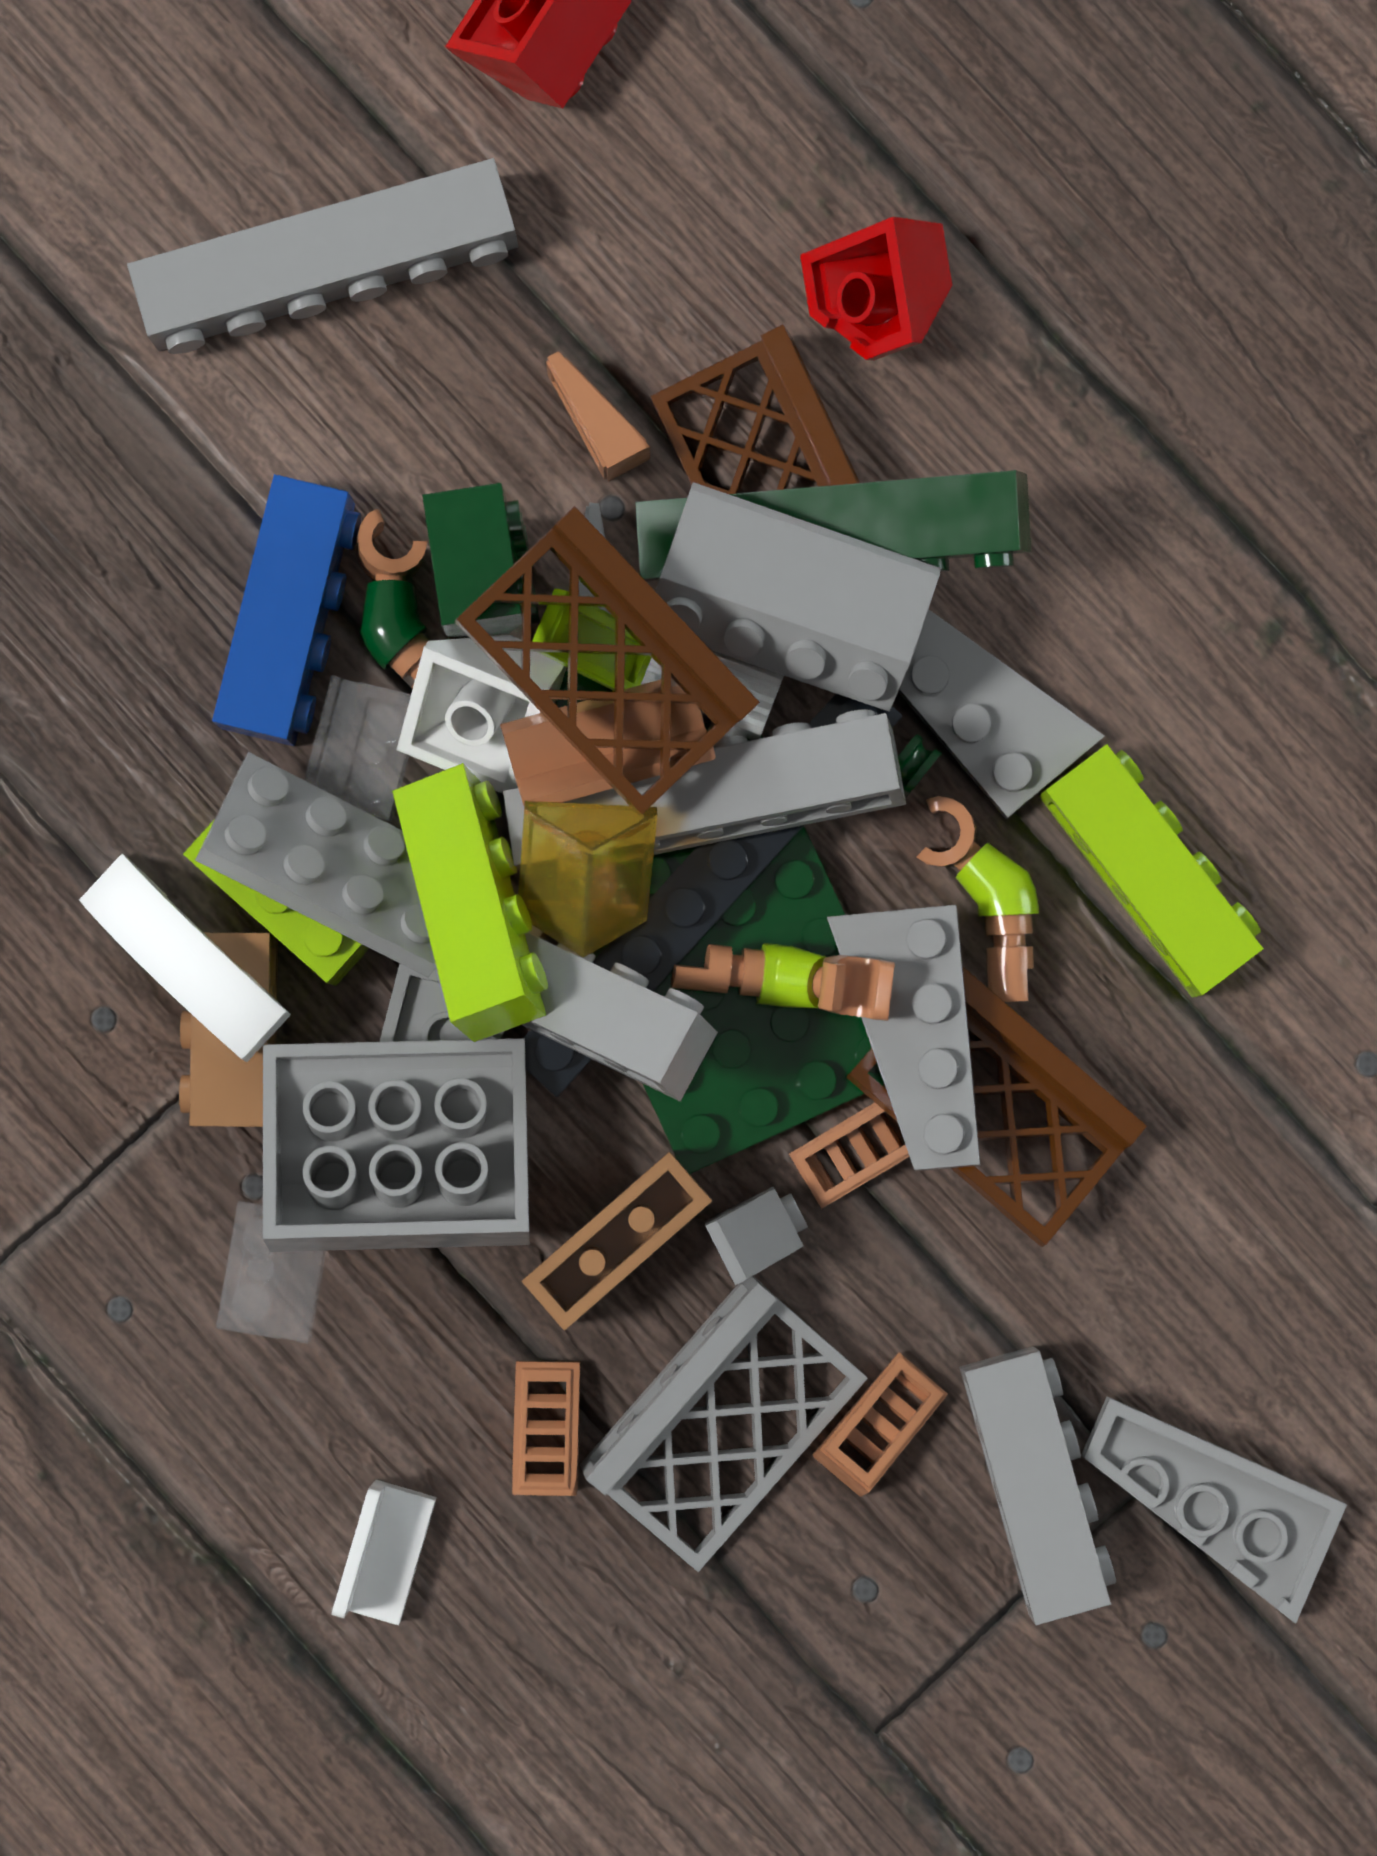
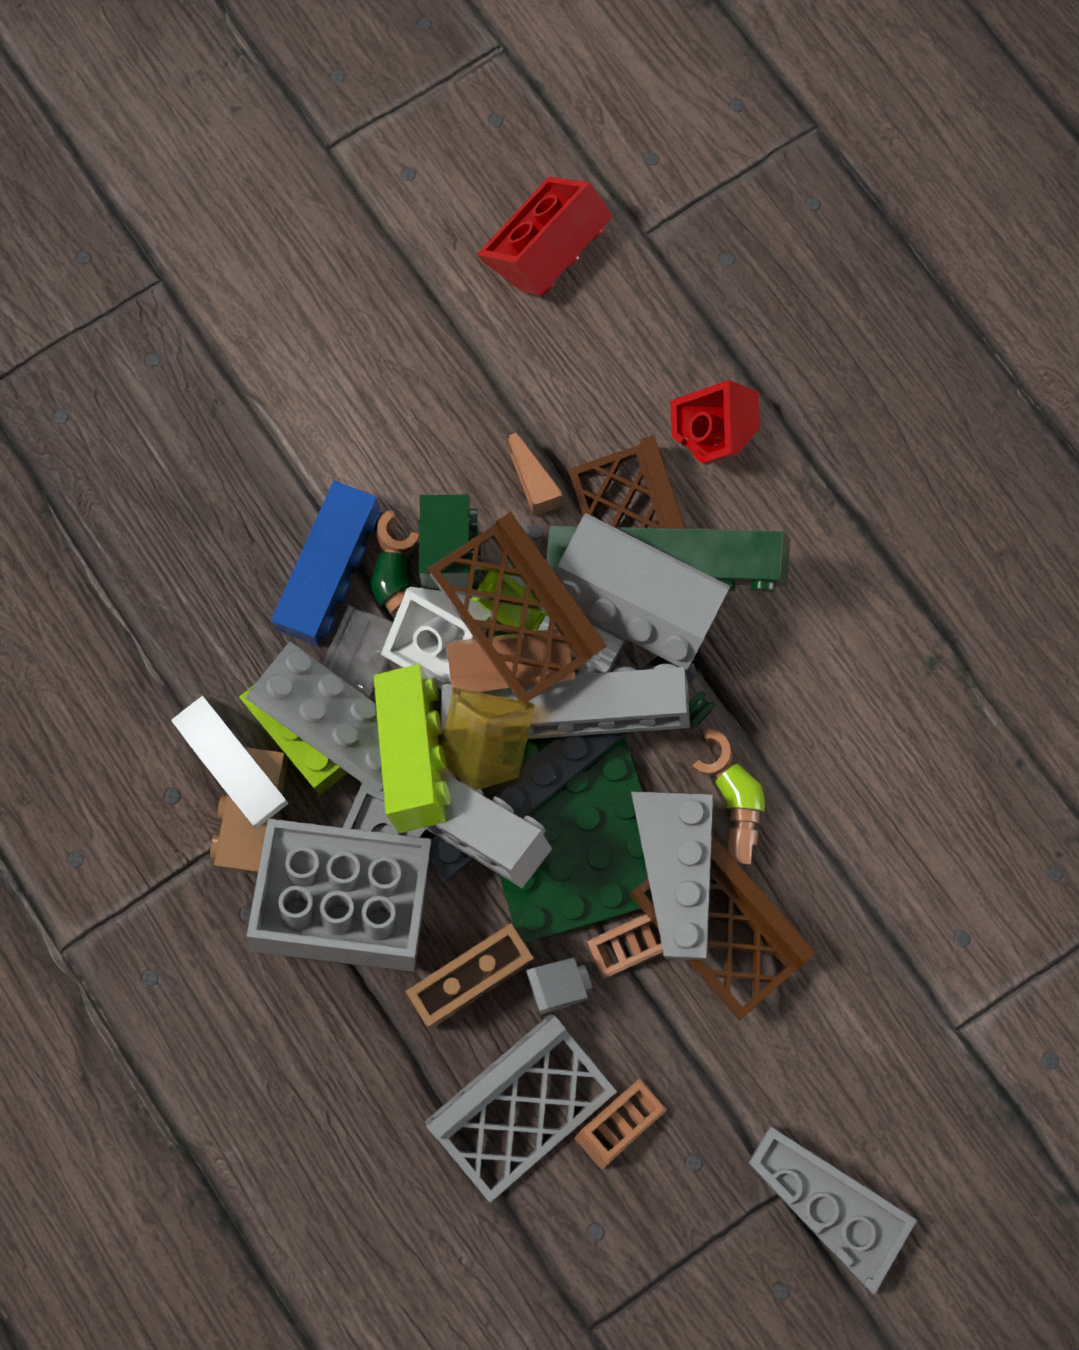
camera: 10 degrees right, 10 degrees down
(266, 1289) = (246, 977): clear plate -> none
(324, 257) = (384, 361): light grey brick -> none
(384, 1552) = (289, 1159): white panel -> none
(546, 1483) = (402, 1128): nougat slope -> none
(795, 979) = (606, 826): nougat piece -> none
(991, 717) = (749, 687): light grey wing -> none
(1036, 1484) = (716, 1177): light grey brick -> none
(1152, 871) = (838, 795): lime brick -> none

